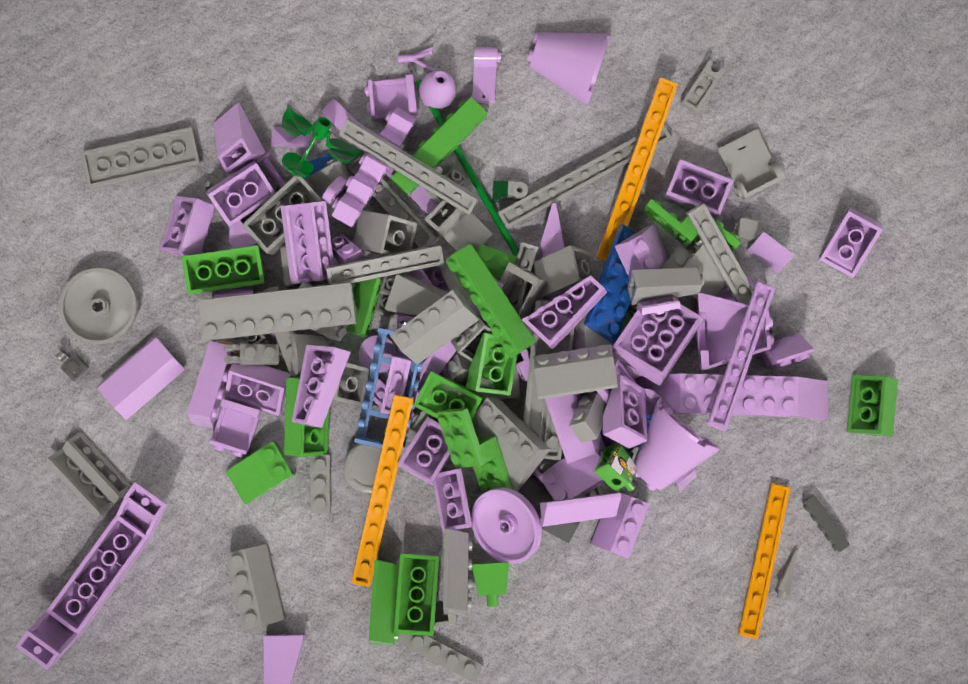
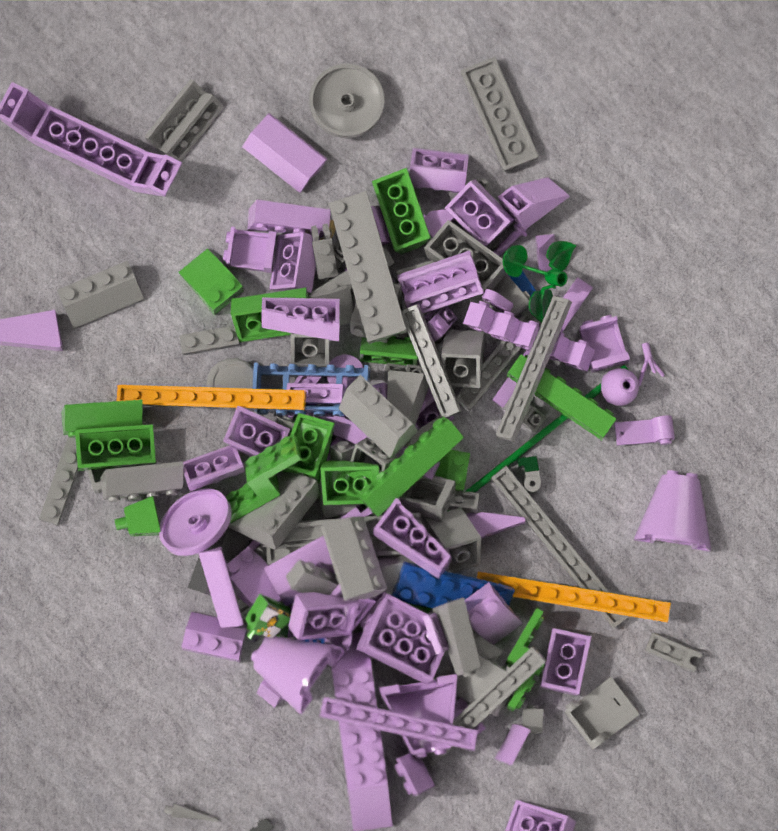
camera: 80 degrees right, 5 degrees down
(72, 365) = (286, 87): flat silver plate -> none
(457, 227) = (481, 430): light grey slope -> none
(764, 561) = (200, 788): light orange tile -> none

